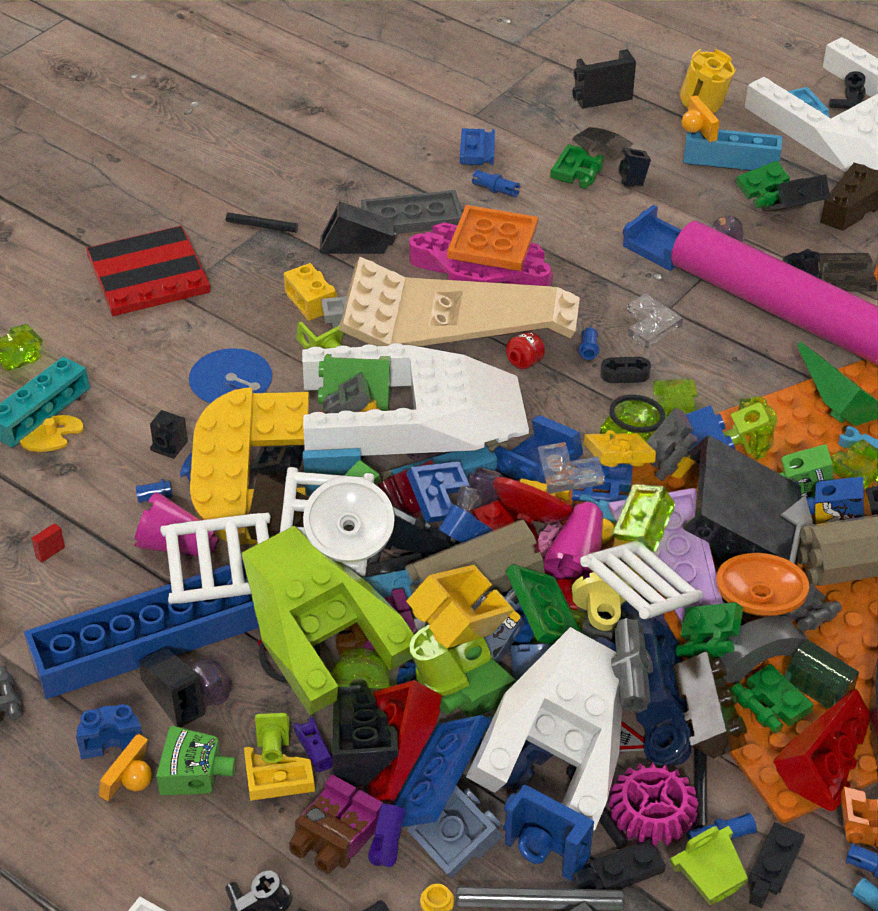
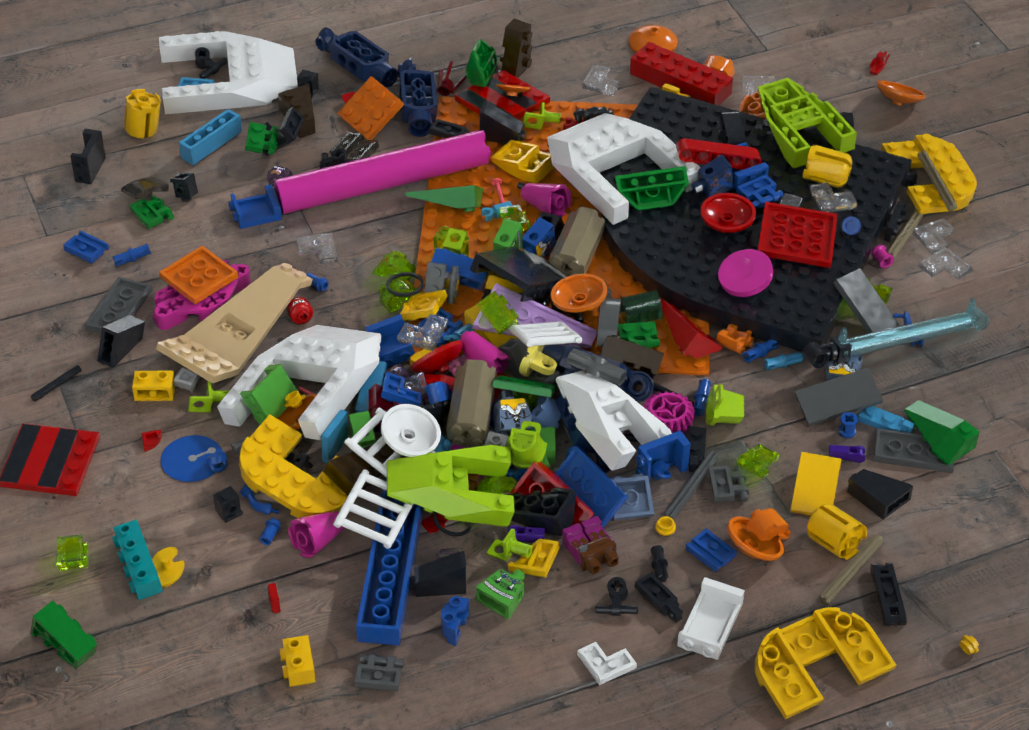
camera: 60 degrees left, 0 degrees up
(127, 770) = (486, 623): light orange tile -> none
(232, 330) = (151, 439): none -> red tile
(351, 396) = (288, 394): dark grey plate -> none
(387, 833) = (613, 523): dark purple bar -> none
(447, 604) = (515, 412): yellow piece -> none
(625, 369) = (347, 280): black beam -> none
(700, 119) = (186, 131): light orange tile -> none
(709, 622) = (587, 324): green plate -> none
(774, 862) = (731, 384): black hinge -> none

